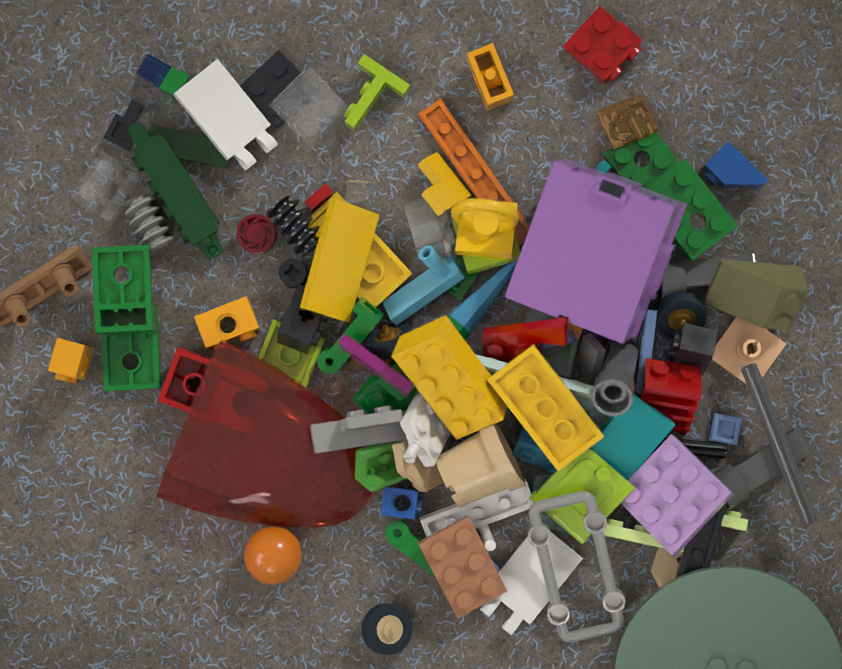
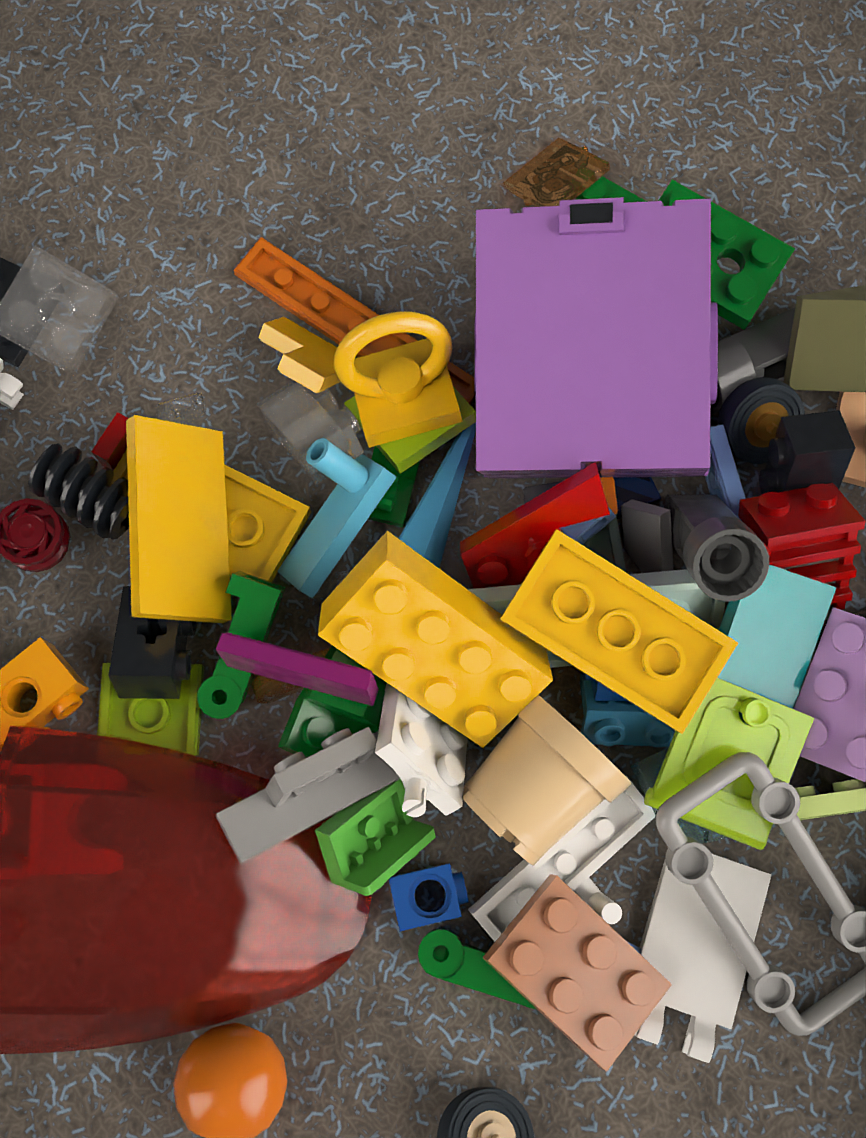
camera: 30 degrees left, 10 degrees down
(294, 277) = (96, 570): black wheel -> none
(372, 90) = (154, 240): lime bracket -> none
(384, 339) = (300, 625): black wheel -> none
(422, 477) = (448, 836): tan tile -> none
(489, 77) = (324, 175): light orange brick -> none
(603, 45) = (478, 88): red plate -> none
(732, 170) = (748, 185): blue slope -> none

